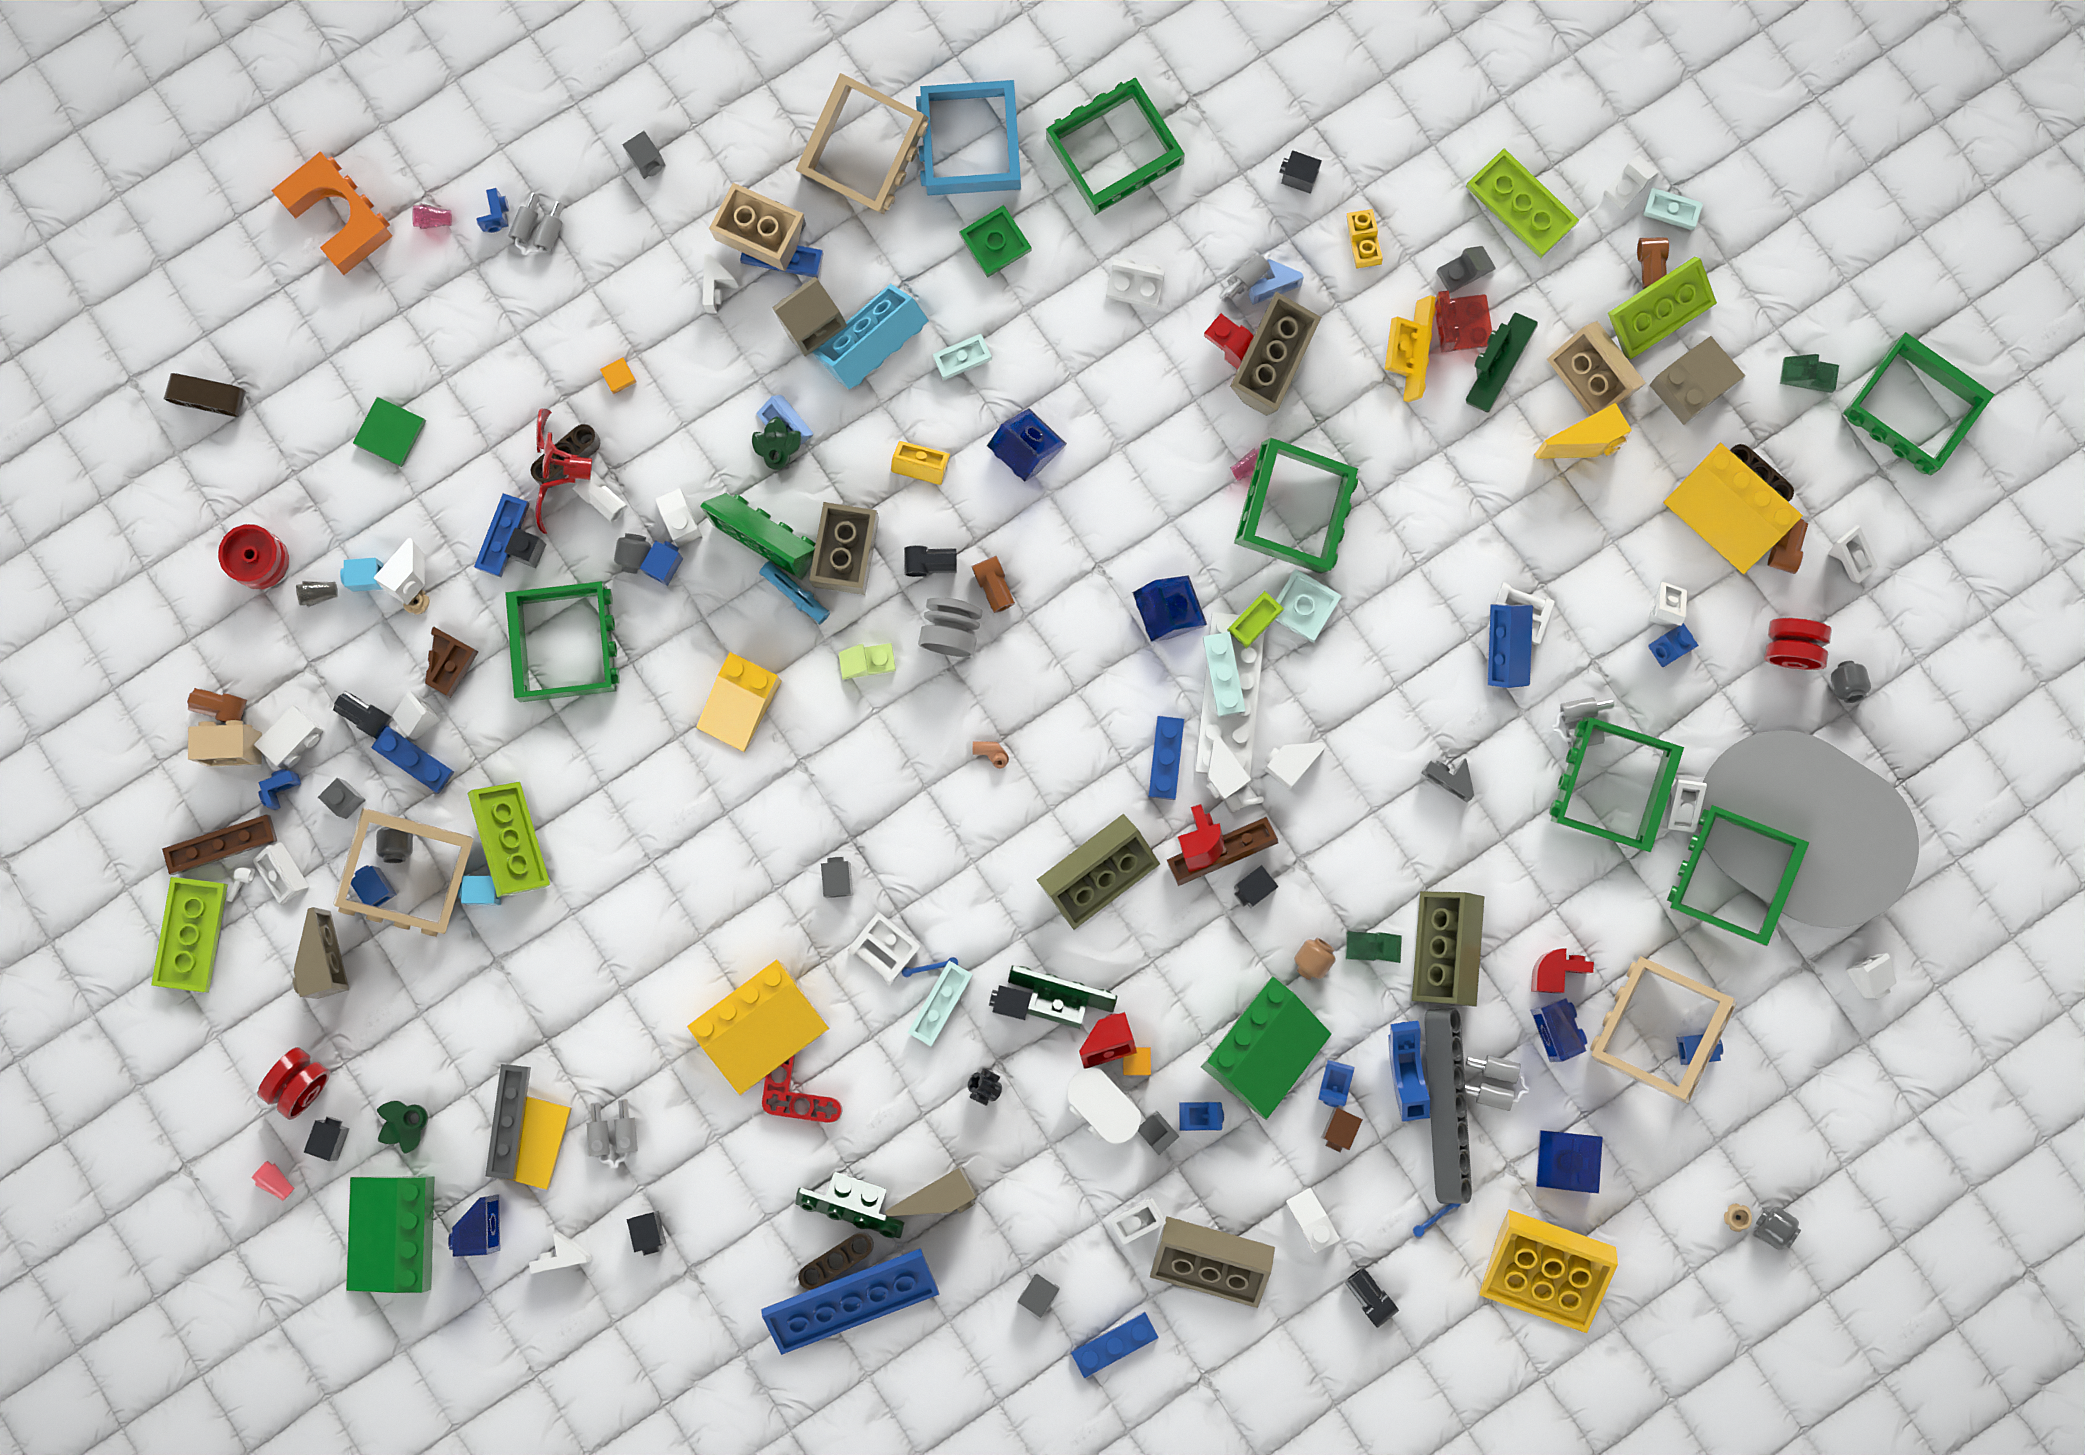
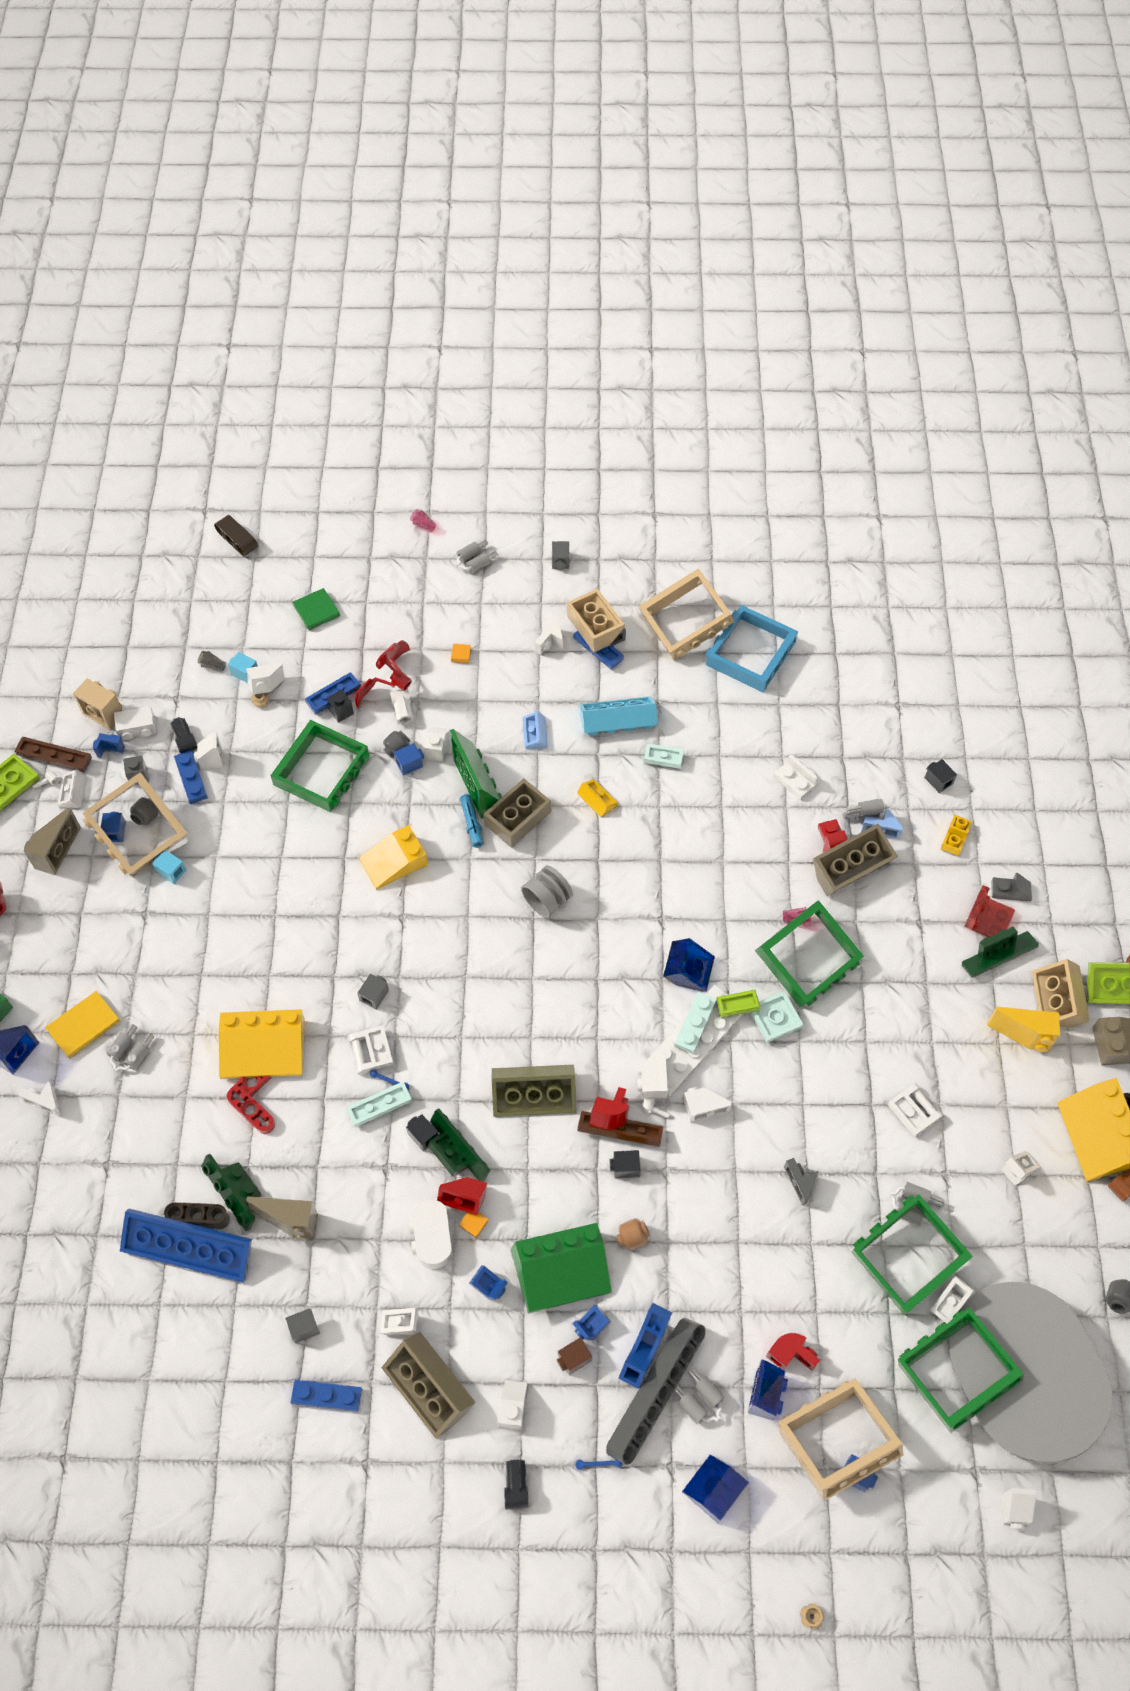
camera: 30 degrees right, 20 degrees down
(222, 707) = (110, 681): dark orange piece -> none
(253, 556) = (193, 623): red wheel -> none
(319, 180) = (383, 506): orange arch -> none
(399, 1125) = (17, 967): dark green plate -> none
(447, 662) = (250, 739): reddish brown wing -> none
(498, 208) = (458, 539): blue bracket -> none
(508, 839) = (206, 847): lime plate -> none
(508, 1121) = (77, 1000): dark grey plate -> none
(570, 443) = (409, 668): dark brown beam -> none
(646, 1233) = (101, 1119): black brick -> none
(774, 440) = (521, 737): dark green plate -> none
(809, 316) = (590, 681): dark tan slope -> none
(866, 661) = (486, 884): yellowish green slope -> none
(921, 561) = (558, 848): black piece -> none
(984, 1087) = (367, 1171): black gear -> none
(991, 578) = (591, 884): dark orange piece -> none
(994, 752) = (522, 980): nougat arm -> none
(995, 241) = (727, 708): green plate -> none
(1025, 444) = (666, 823): clear blue slope -> none
(1136, 180) = (839, 724): green window -> none
(1157, 1132) = (454, 1277): dark grey panel -> none
(1166, 758) = (625, 1052): blue plate -> none
(1373, 947) = (678, 1254): clear green slope -> none
(1410, 347) = (944, 909): yellow bracket -> none
(1448, 948) = (727, 1287): olive slope -> none
(1510, 645) = (895, 1122): blue panel -> none
(1522, 203) = (1072, 873): lime plate -> none
(1548, 1271) = (649, 1556): yellow slope -> none
(1673, 645) = (1008, 1193): blue bracket -> none
(1778, 1228) = (836, 1644): dark grey head -> none
(1798, 644) = (1097, 1244): red wheel -> none

